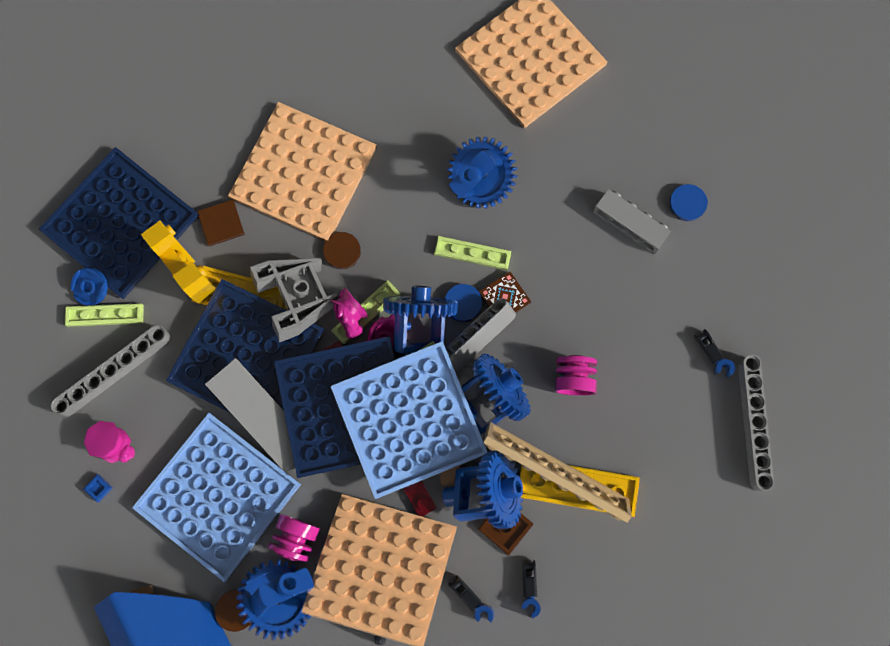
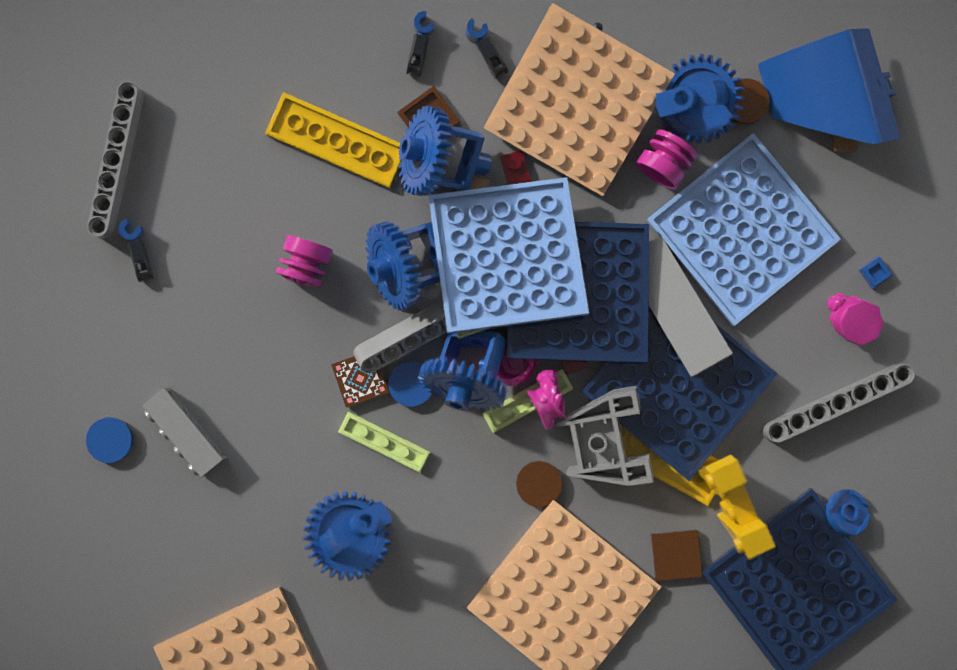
camera: 165 degrees left, 10 degrees up
(104, 315) = (835, 474): yellowish green tile -> none
(557, 471) = (356, 156): tan plate -> none

